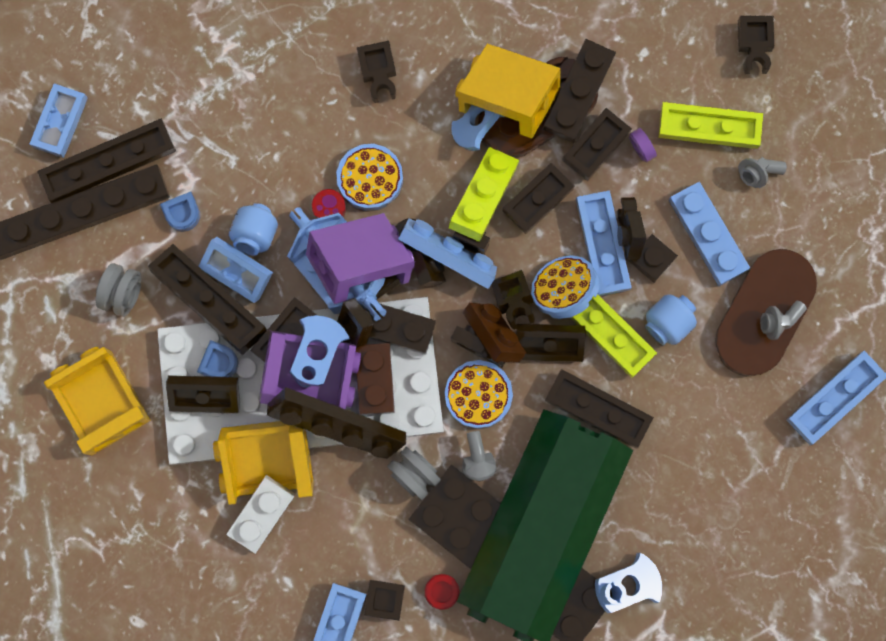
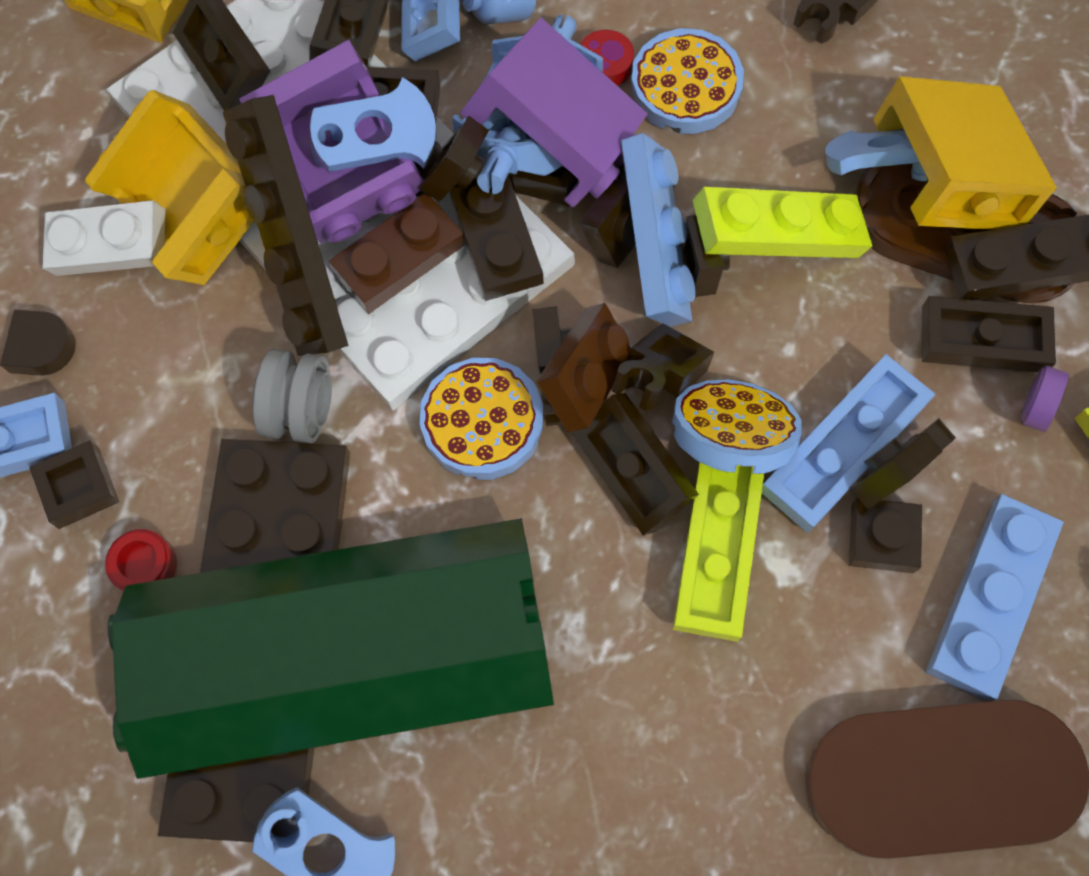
camera: 55 degrees right, 10 degrees down
(218, 361) = (282, 45): medium blue tile -> none
(293, 578) = (37, 344): none -> dark brown tile
(480, 464) = (369, 482): light grey plate -> none
(538, 198) = (839, 307): dark brown plate -> none
(599, 409) = (585, 610): dark brown plate -> none
(671, 319) = (812, 623): light blue head -> none
(774, 322) = (944, 800): light grey plate -> none

